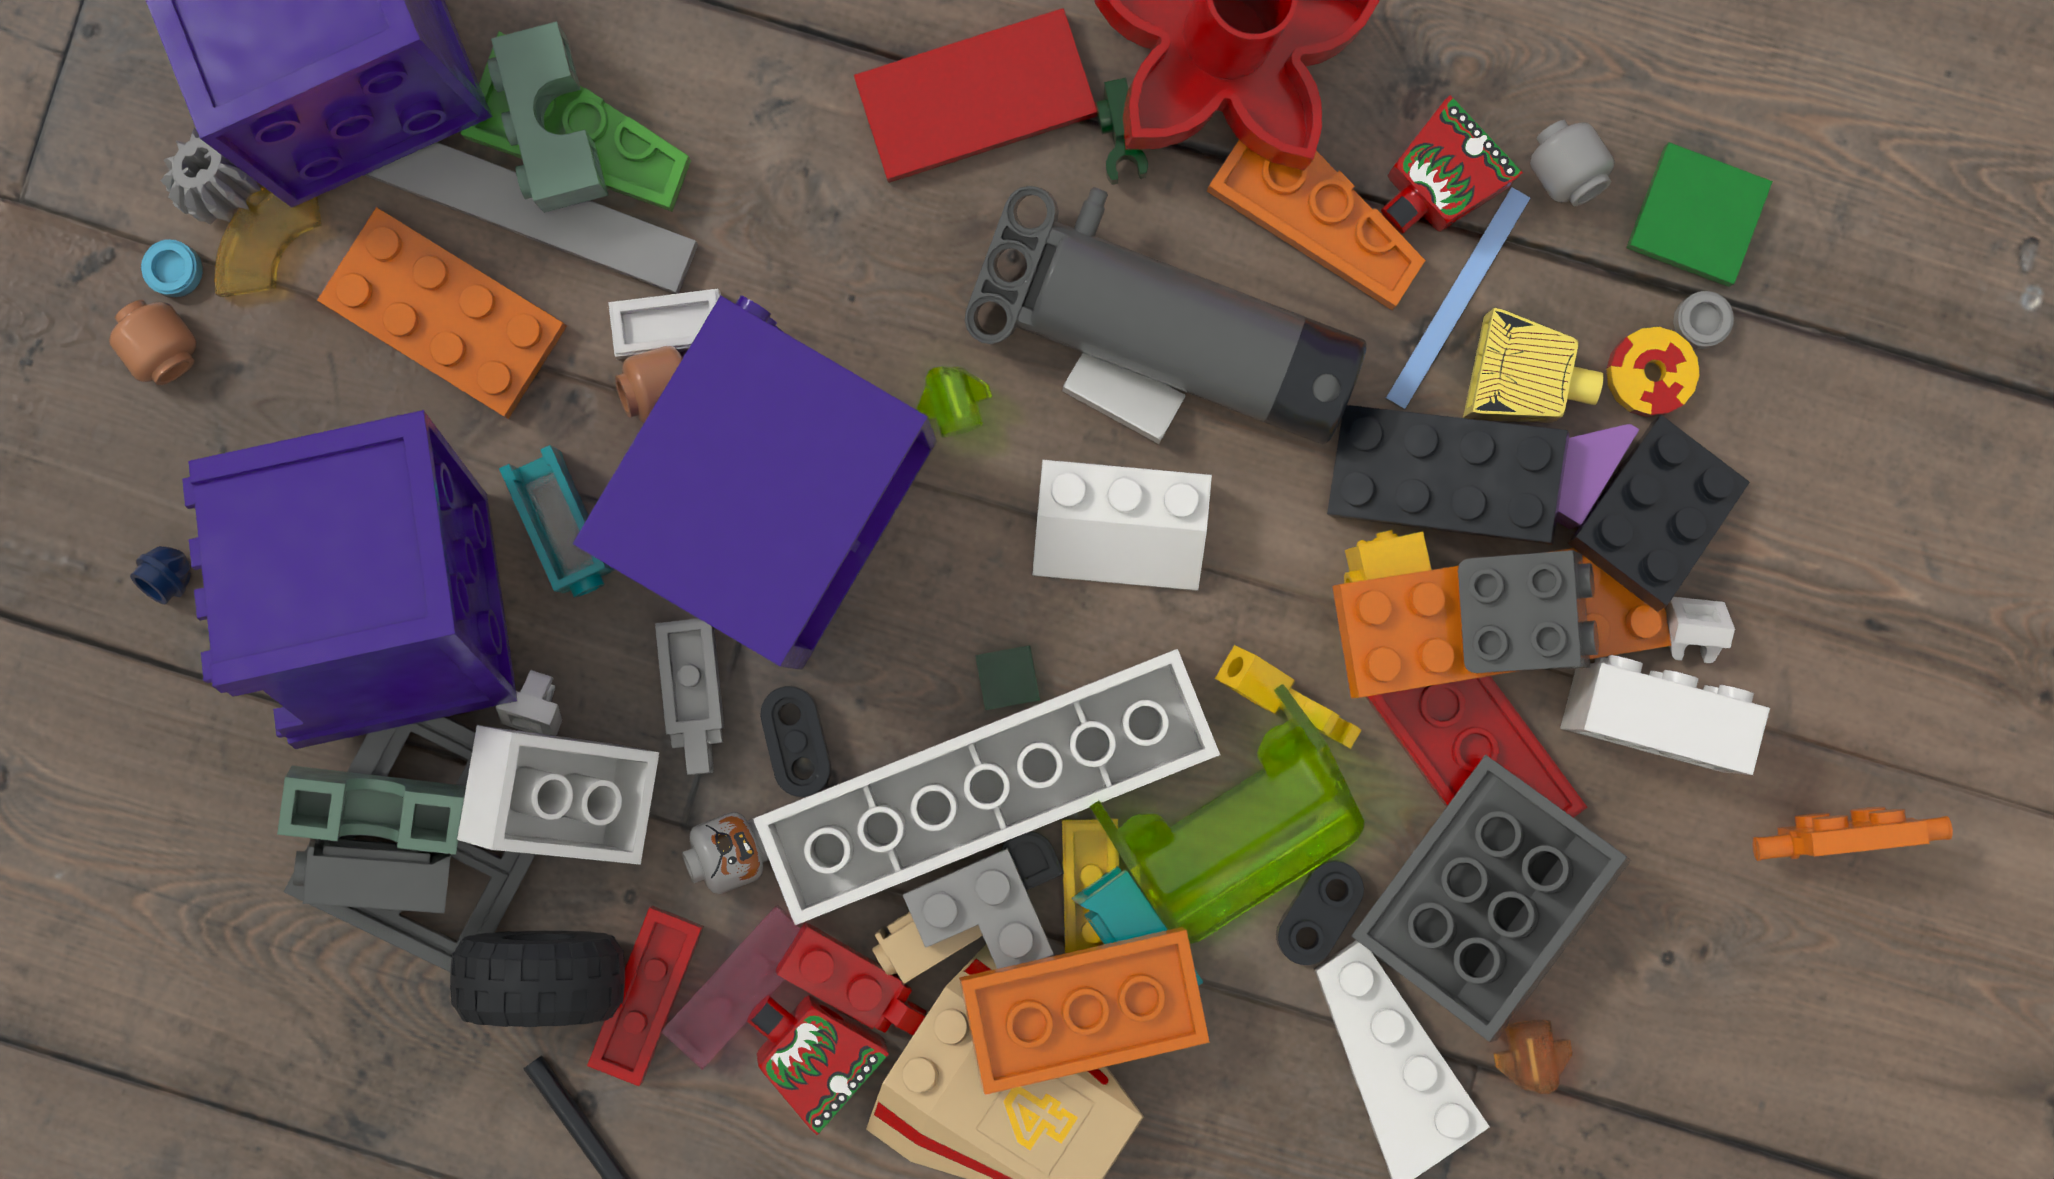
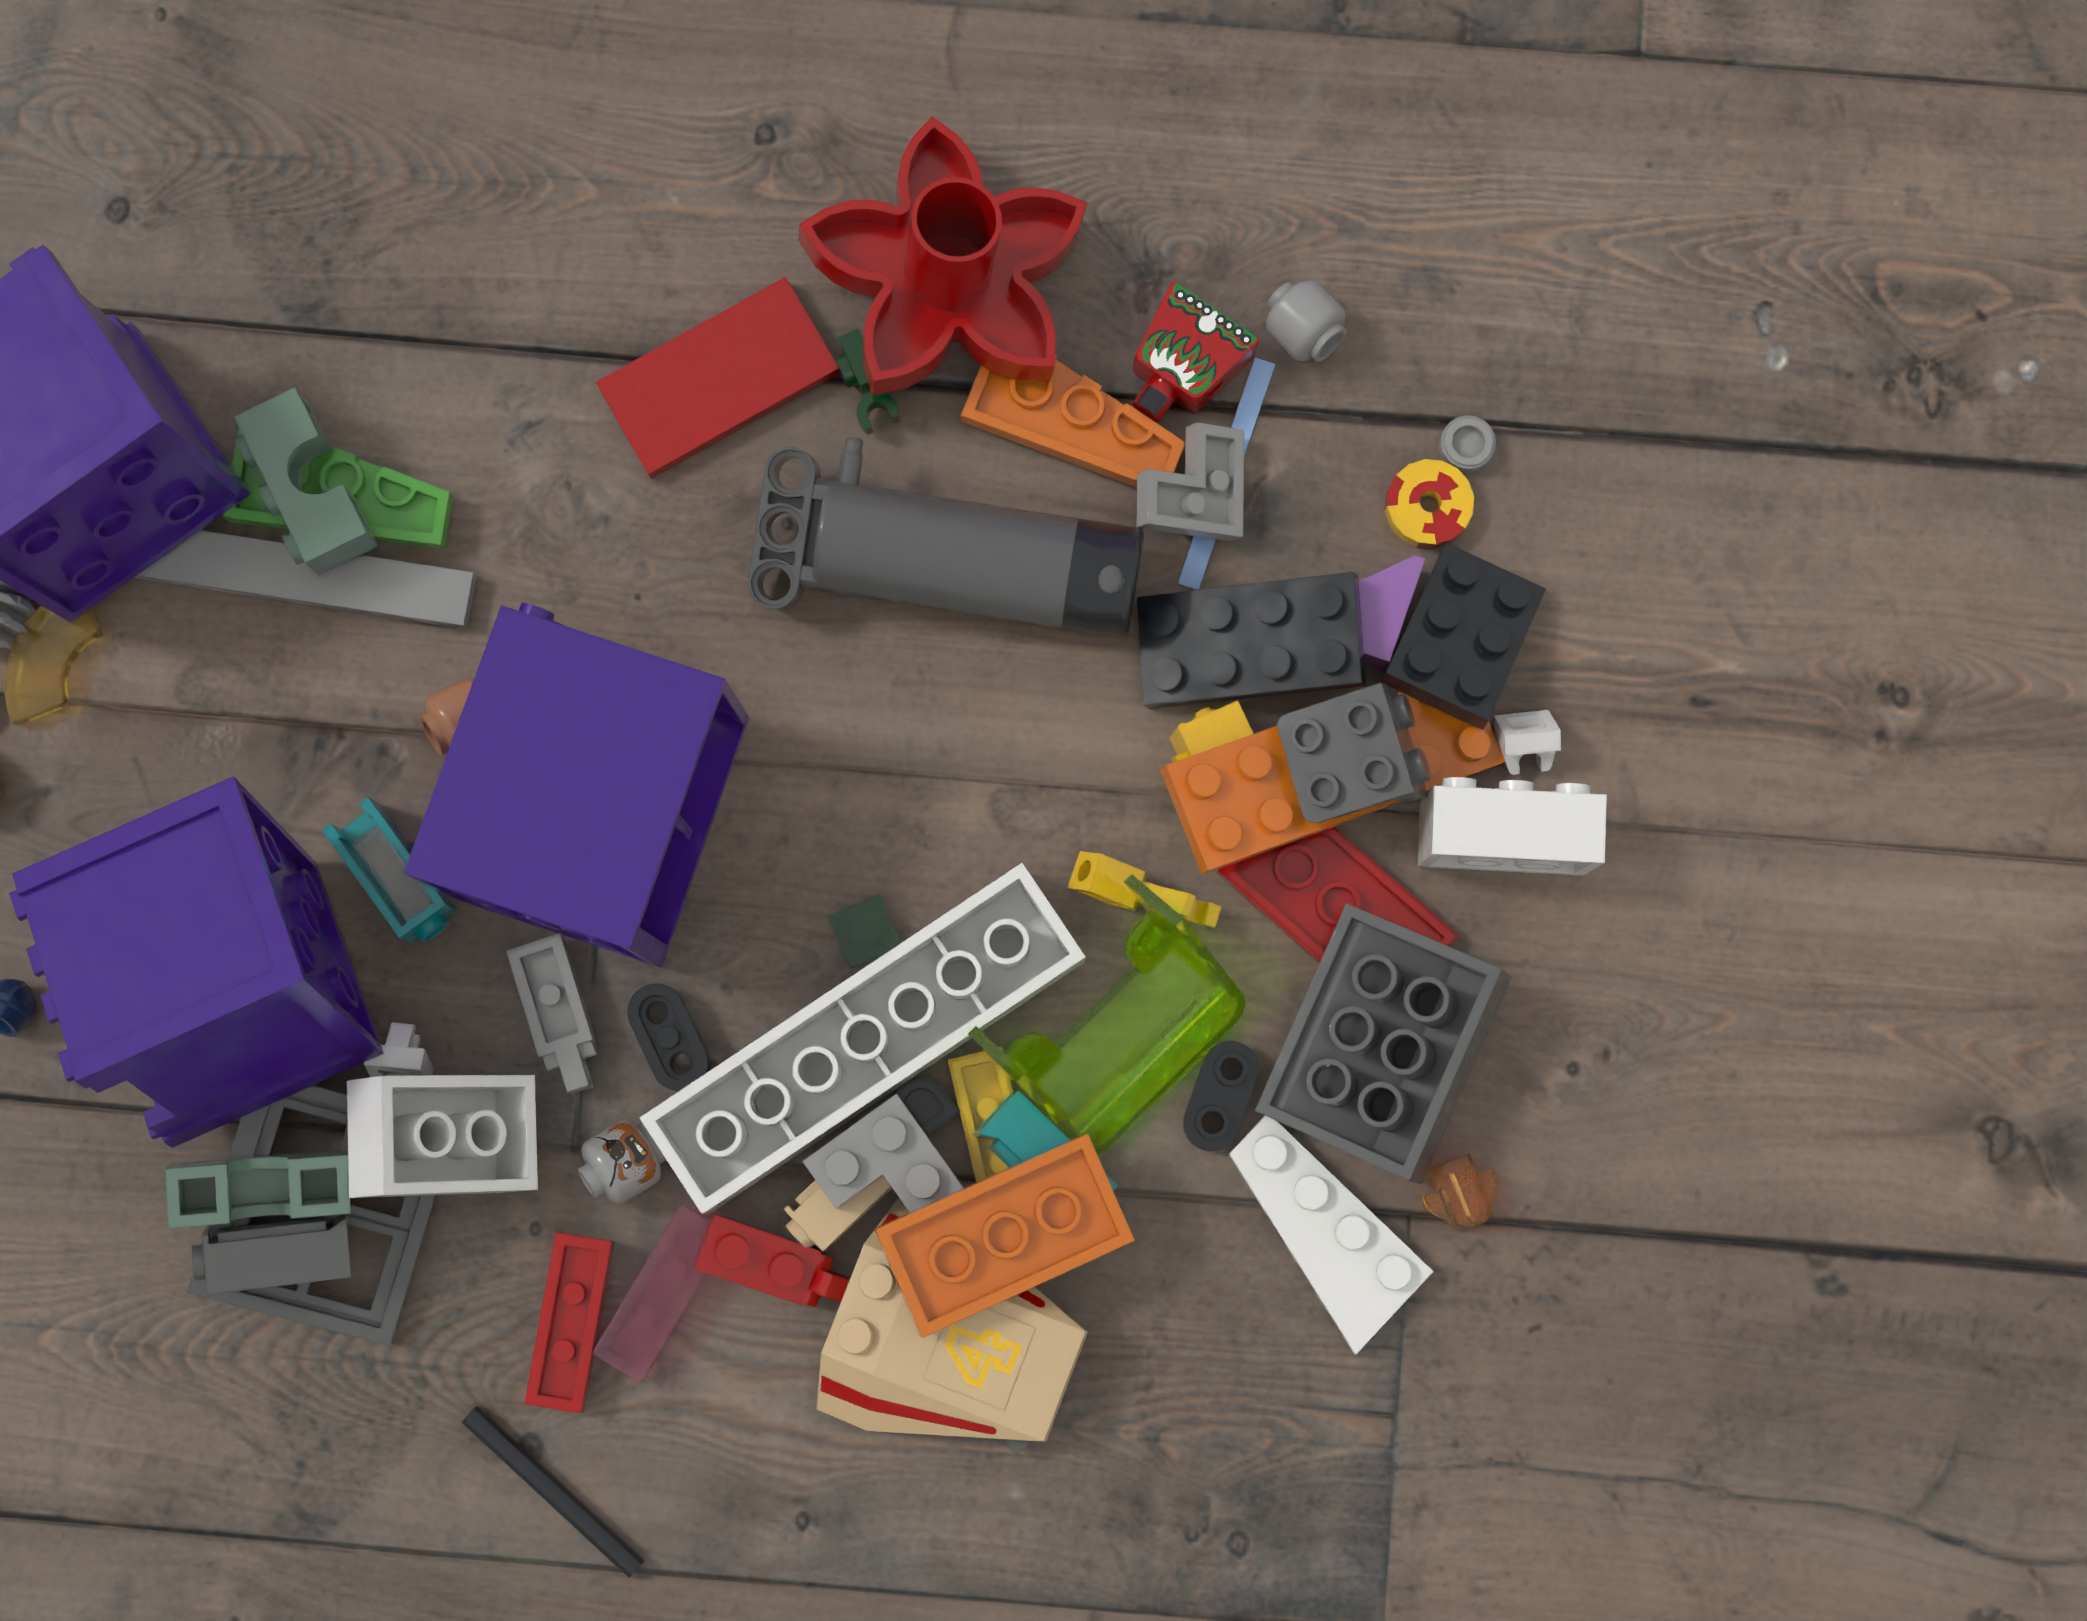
camera: 15 degrees left, 5 degrees down
(442, 313) = (238, 694): orange plate -> none
(537, 978) = (456, 1321): black tyre -> none
(659, 321) = (445, 658): white tile -> none
(815, 1056) = (749, 1344): torso -> none
(953, 399) = (755, 672): clear neon green piece -> none
(1121, 525) = (943, 758): white slope -> none
(1124, 396) = (922, 634): white slope -> none
(1435, 320) = (1205, 498): none -> light grey plate
(1526, 372) = (1307, 528): light yellow torso -> none
(1699, 214) = (1440, 345): green tile -> none
(1867, 830) = (1733, 896): orange plate -> none

